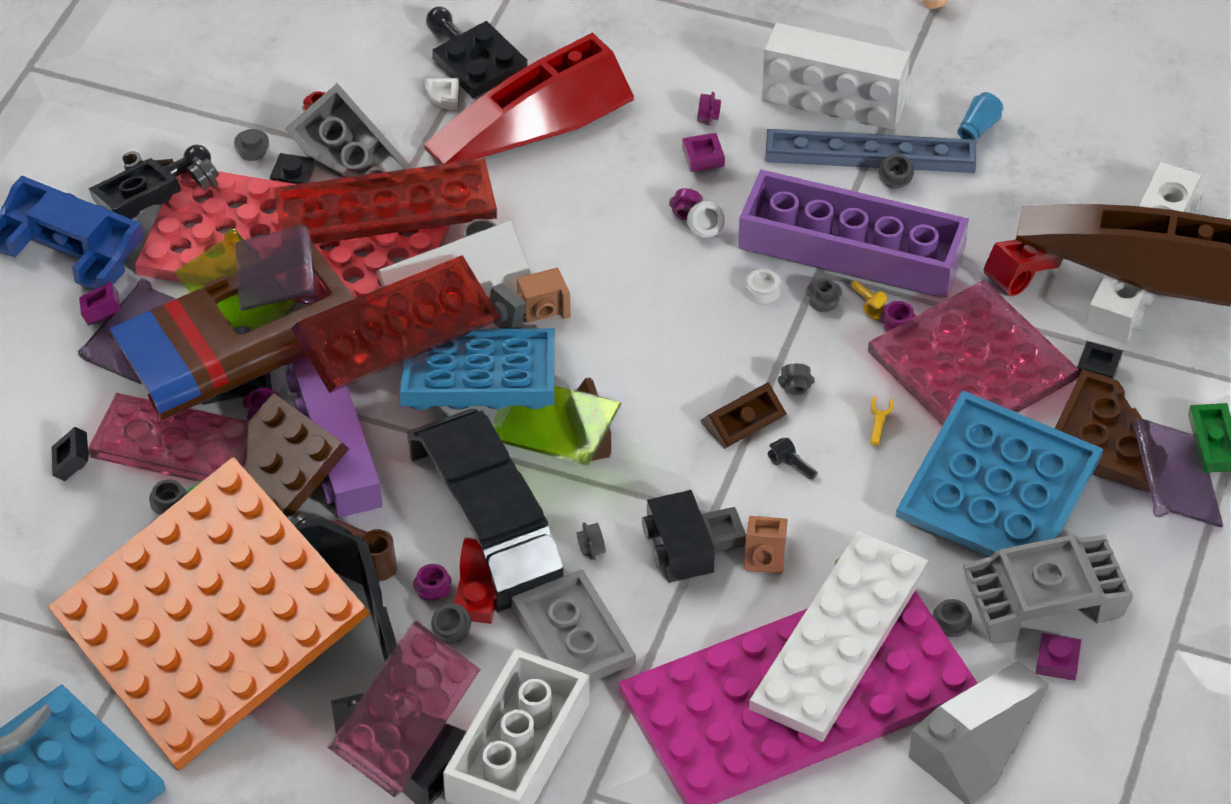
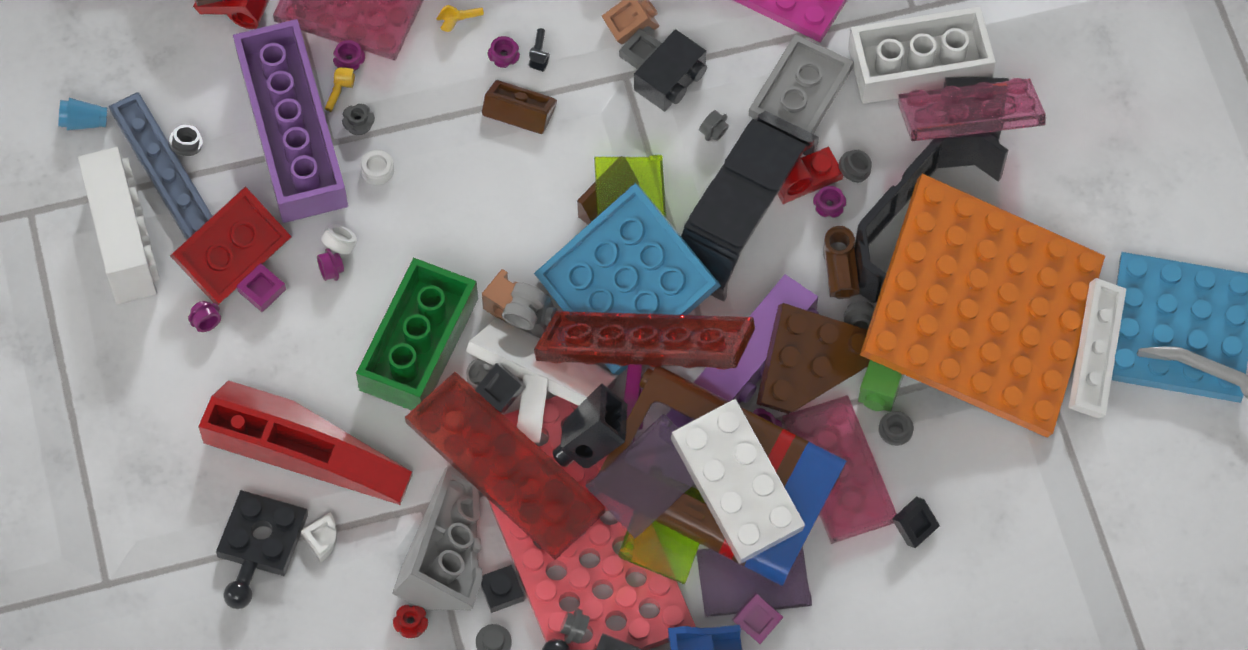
camera: 125 degrees left, 15 degrees up
(88, 688) = (1097, 348): none -> white plate
(202, 300) = (737, 481): none -> white brick
(348, 252) = (593, 429): none -> black torso
(416, 241) = (532, 406): none -> white sticker
(450, 223) = (500, 388): none -> black plate
(516, 277) = (524, 305): none -> light grey wheel
(559, 214) = (417, 334): none -> green brick
(756, 138) = (230, 245): none -> red plate
(796, 378) = (461, 86): dark grey plate -> none
(810, 428) = (500, 45): none -> magenta plate

